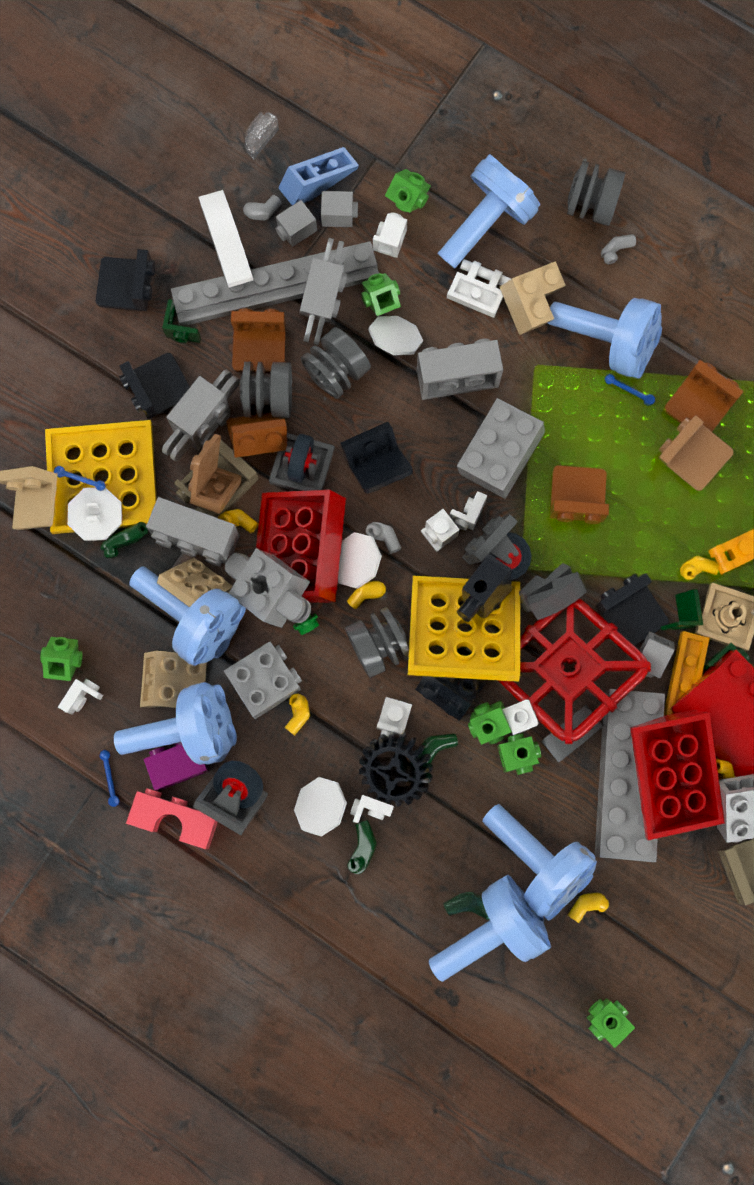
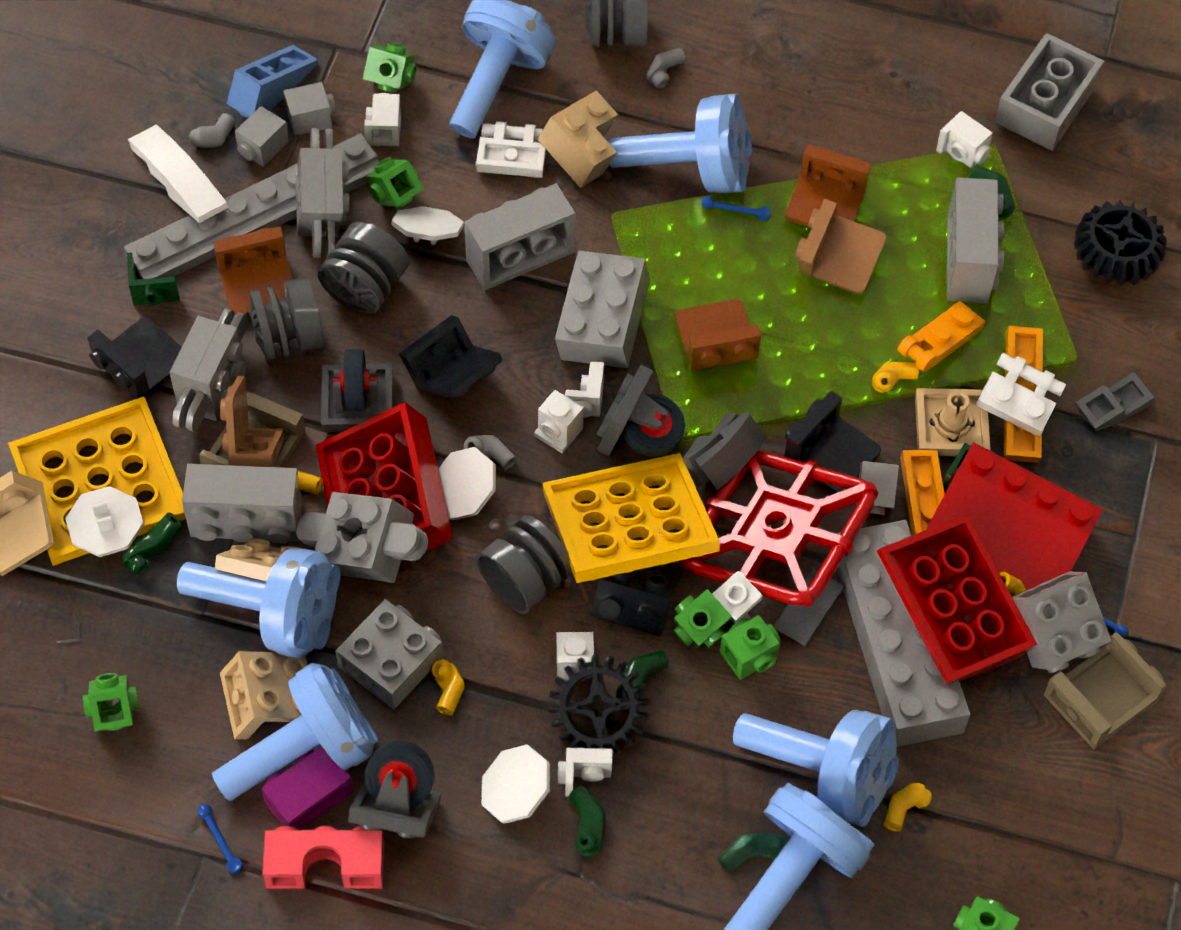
camera: 20 degrees left, 20 degrees down
(75, 699) = (146, 742): white bracket -> none
(99, 485) = (101, 484): blue hinge -> none
(125, 282) = (64, 254): black bracket -> none
(257, 435) = (292, 370): dark orange bracket -> none
(260, 133) = (184, 53): clear brick -> none
(308, 625) = (423, 574): green plate -> none
(370, 590) = (490, 515): yellow arm -> none
(485, 589) = (641, 457): black torso -> none
(688, 611) = (900, 429): dark green bracket -> none

